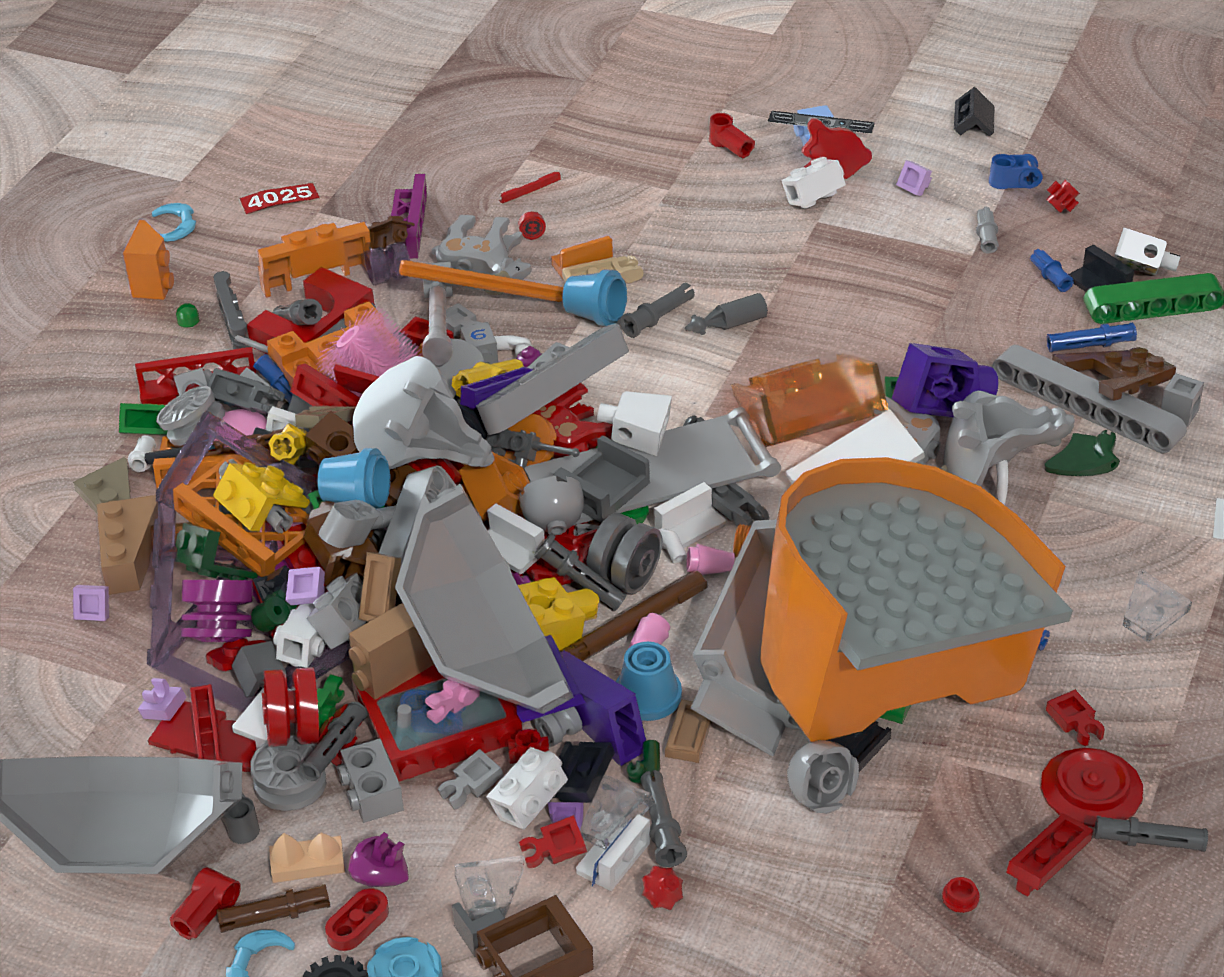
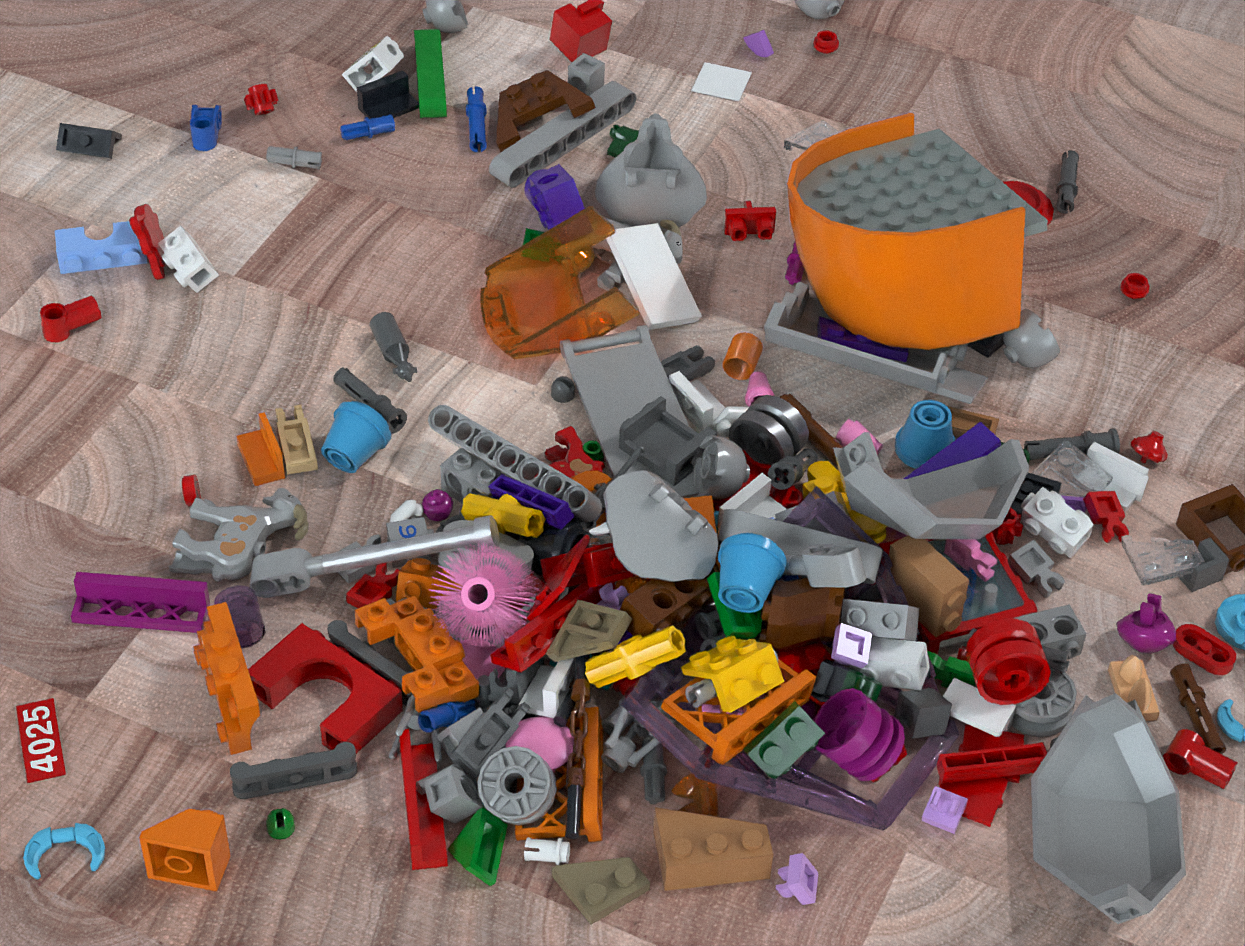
camera: 90 degrees left, 5 degrees up
(301, 311) = (346, 676): dark grey pin -> none
(379, 585) = (884, 570): medium nougat tile -> none
(388, 232) = (191, 599): reddish brown hinge -> none
(481, 280) = (315, 524): orange axle -> none
(528, 188) = (95, 485): red piece -> none
(638, 420) = (588, 405): white torso -> none
(803, 119) = (87, 237): sticker -> none
(914, 178) = (196, 191): lavender tile -> none
(1048, 853) = (1096, 231): red hinge -> none

